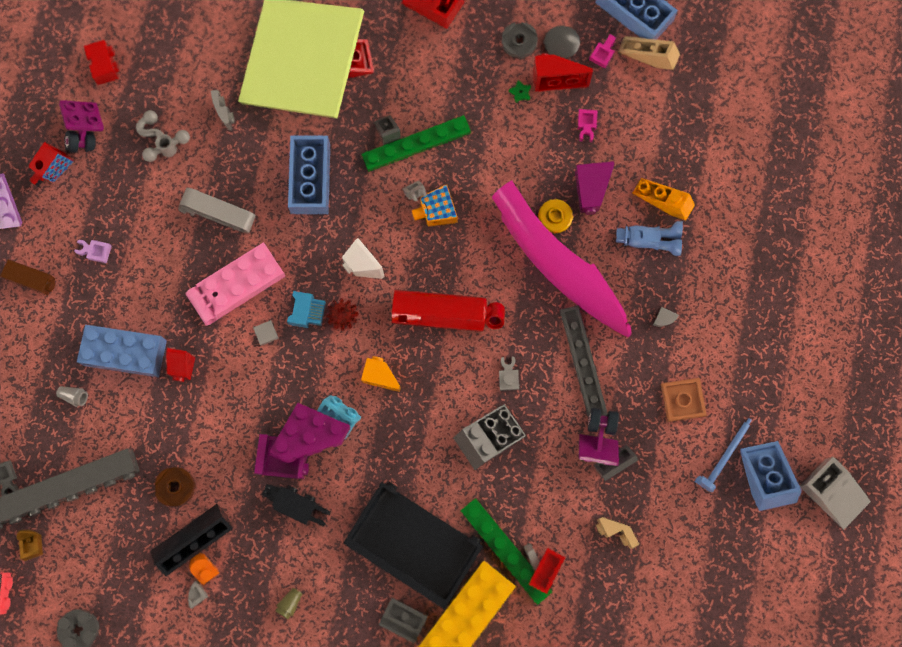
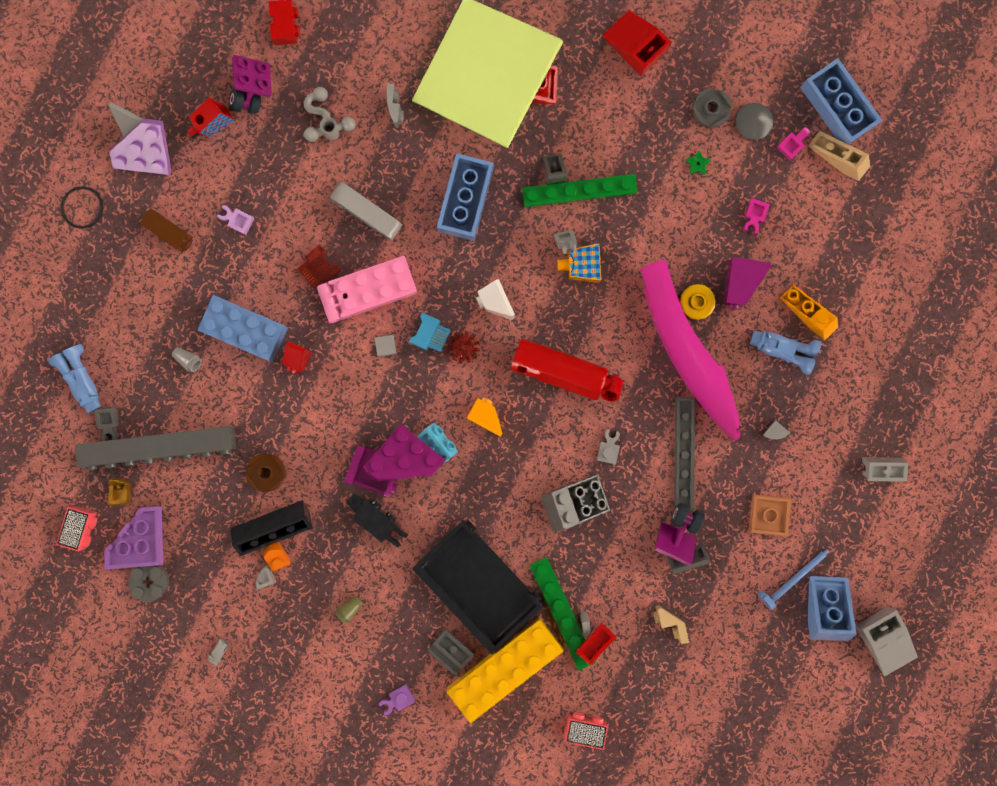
camera: 10 degrees right, 10 degrees up
(59, 590) = (138, 542): none -> medium lavender plate
(182, 275) = (318, 268): none -> clear red piece
(558, 73) = (741, 155): red slope -> none
(780, 325) = (885, 469): none -> light grey hinge

